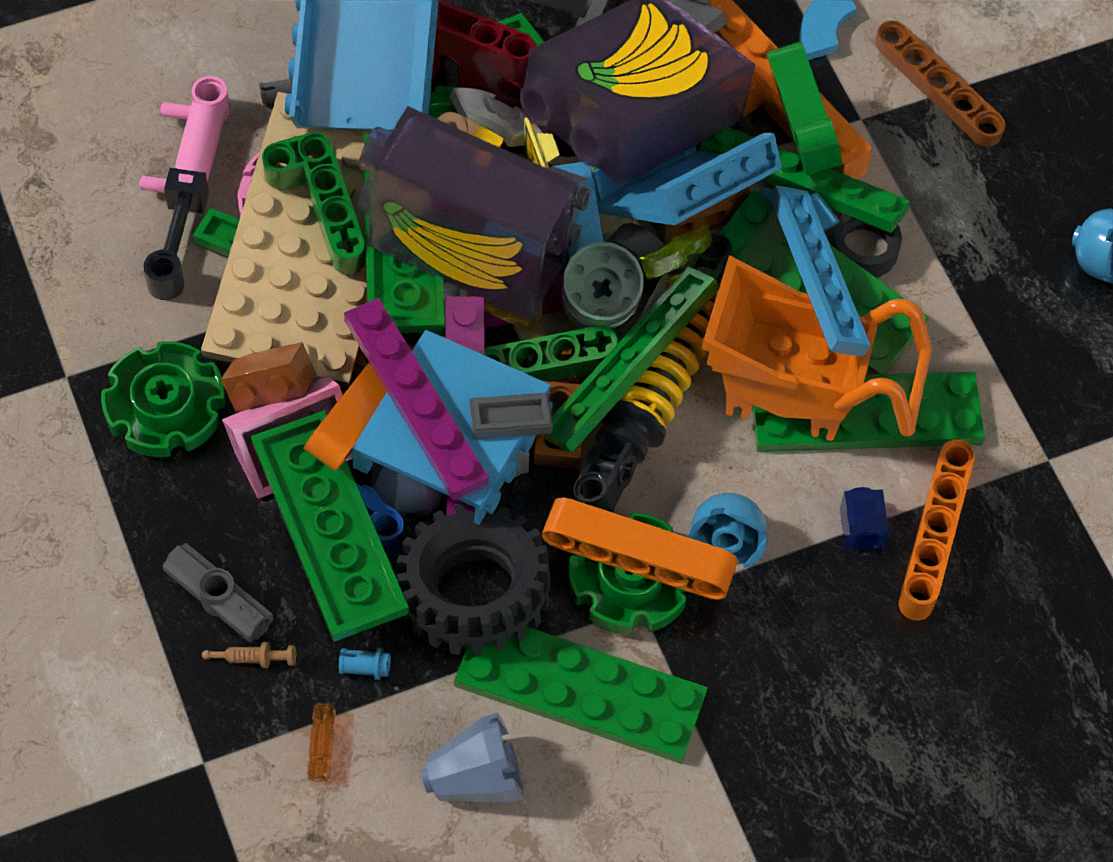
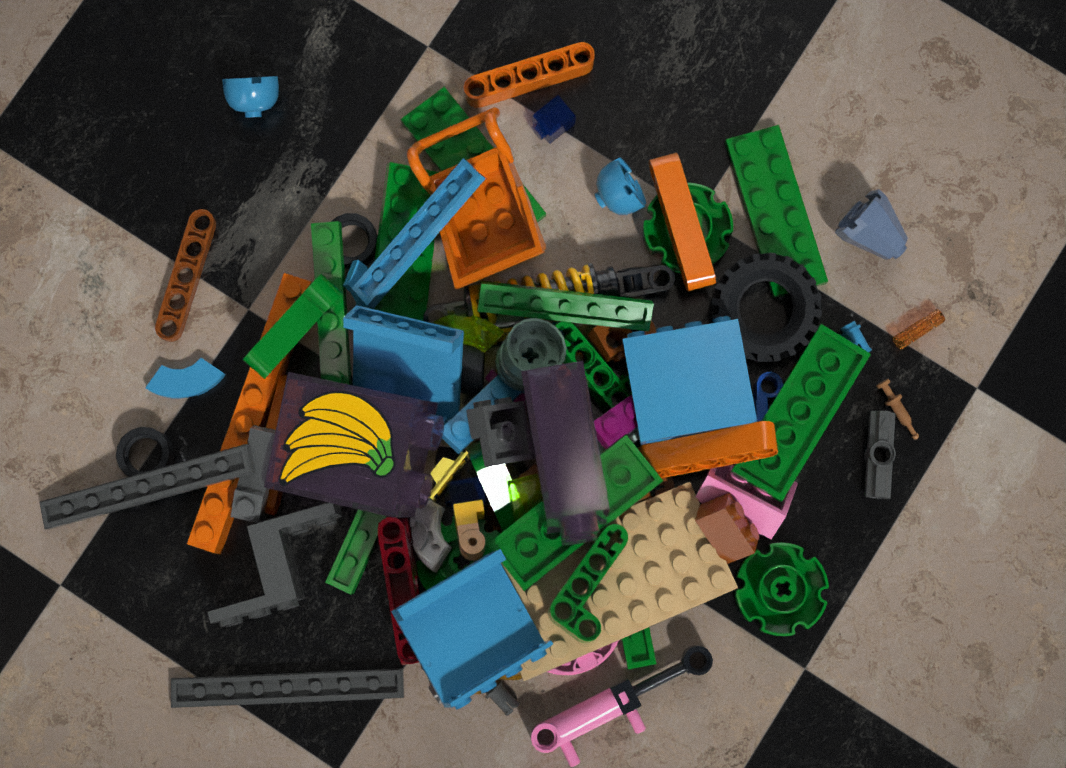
camera: 120 degrees left, 20 degrees up
(416, 399) = (696, 409): magenta plate -> none
(510, 415) = (665, 343): dark grey tile -> none

